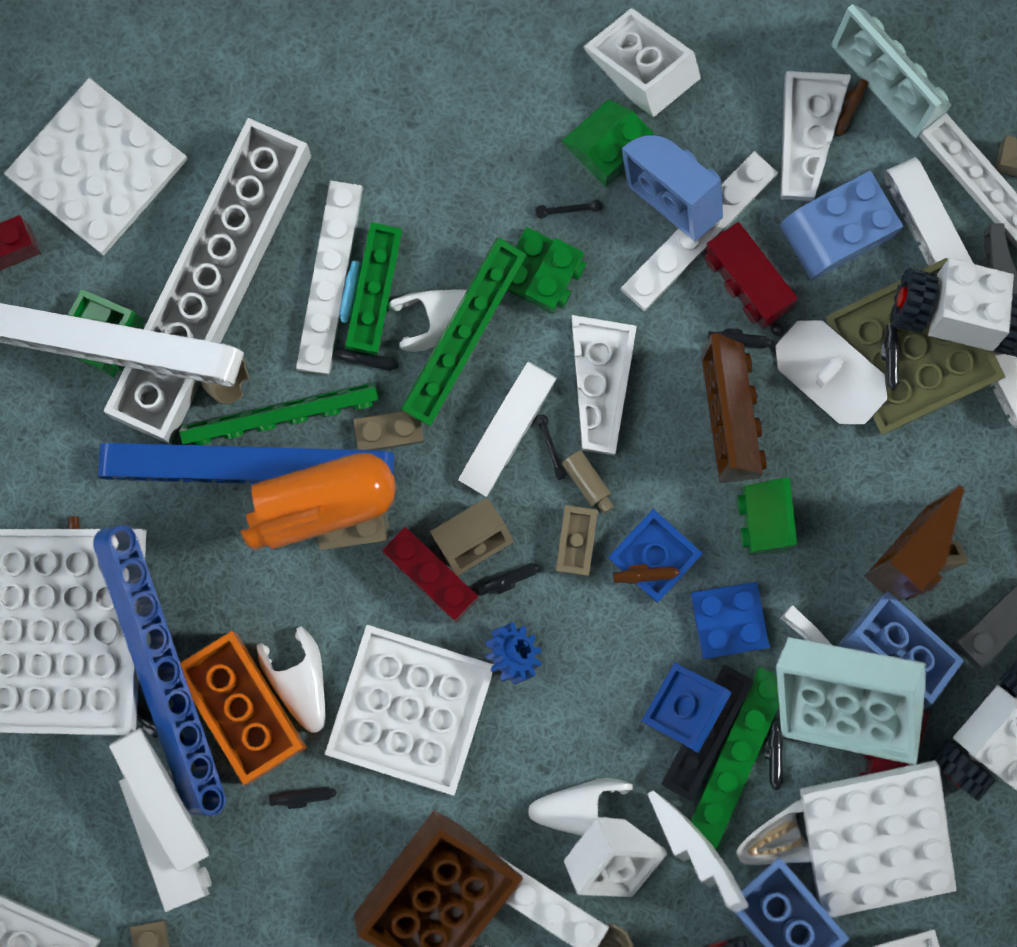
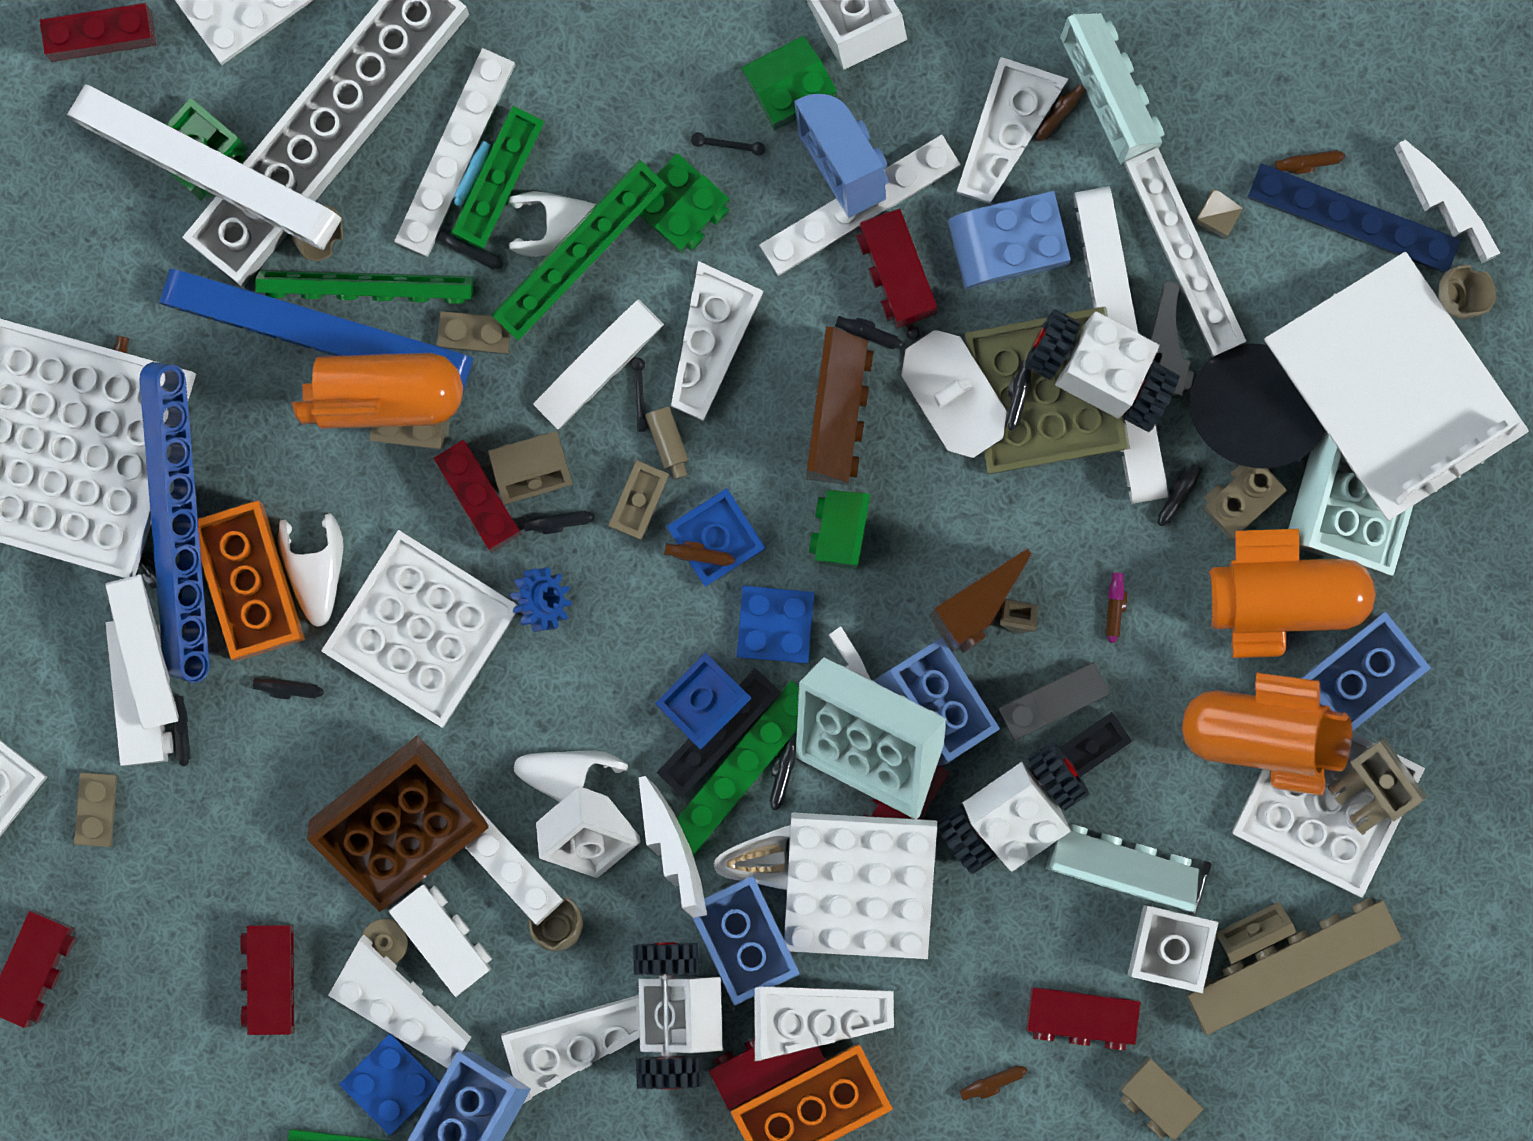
camera: 15 degrees right, 5 degrees up
(214, 864) = (181, 733): none -> black piece

